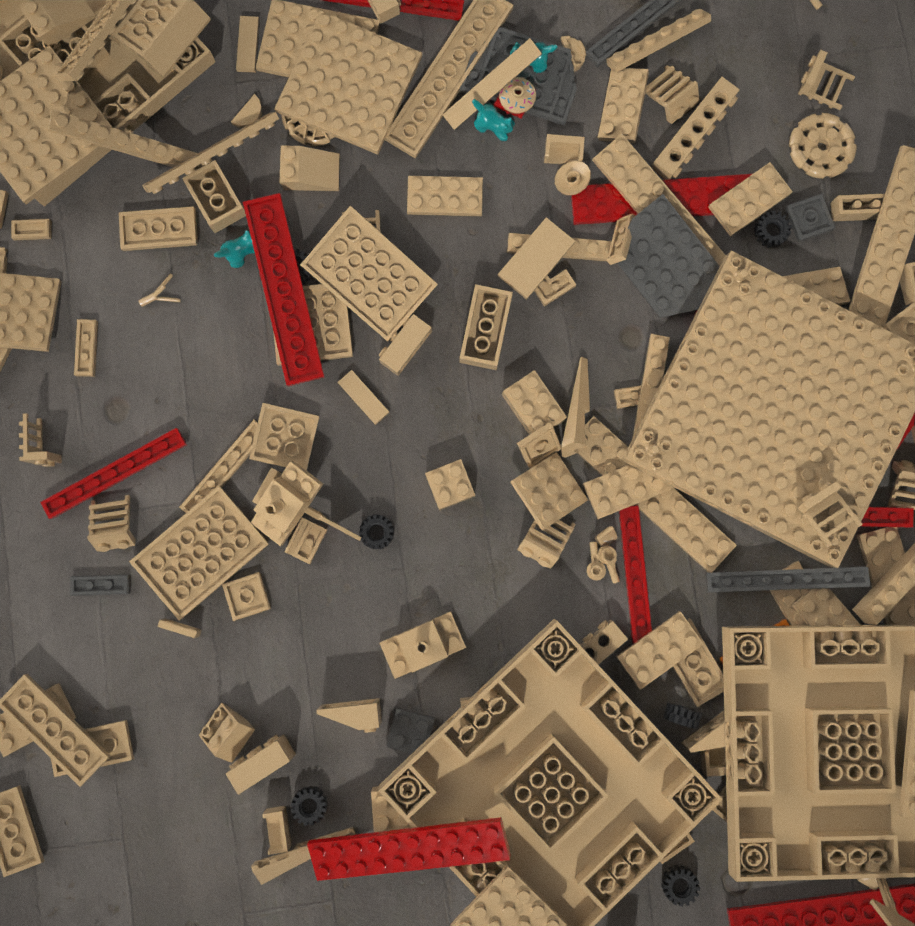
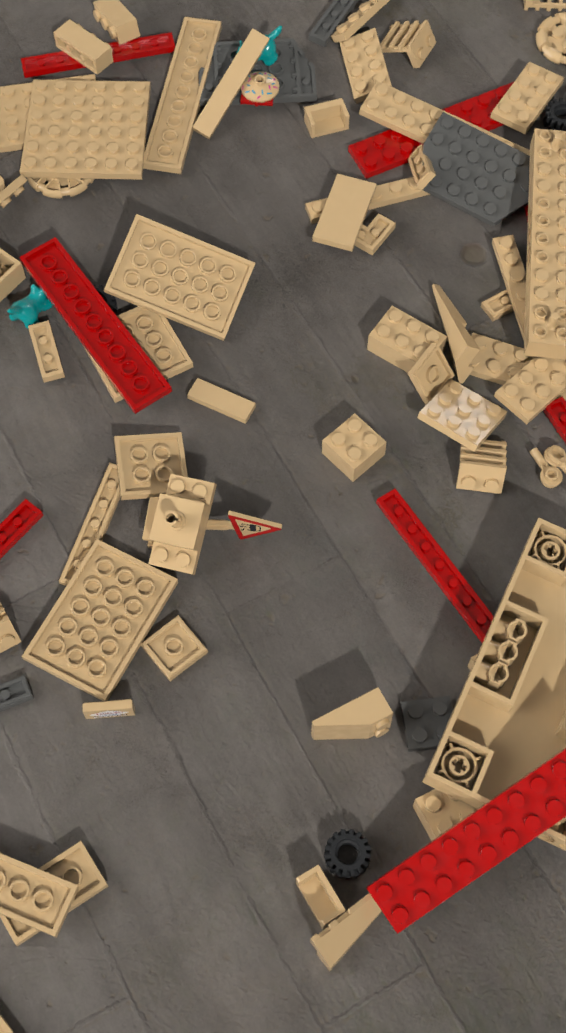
camera: 20 degrees left, 20 degrees down
(226, 733) = (212, 806): tan slope -> none
(238, 296) = (46, 351): none -> tan plate
(260, 763) = (268, 819): tan brick -> none
(306, 540) = (219, 562): tan plate -> none
(309, 169) = (75, 215): tan slope -> none
(368, 523) = (295, 512): black tyre -> none
(405, 344) = (244, 335): tan brick -> none
(422, 645) = (398, 623): tan brick -> none
(444, 196) = (225, 195): tan plate -> none
(472, 608) = (436, 563): none -> red plate
(485, 327) = (322, 288): tan brick -> none
(490, 119) = (244, 116): teal animal -> none
(568, 173) = (346, 136): tan dish -> none
(577, 51) = (300, 38): tan tile -> none
(606, 537) = (544, 438): tan slope -> none
(722, 91) = (445, 59): tan brick -> none

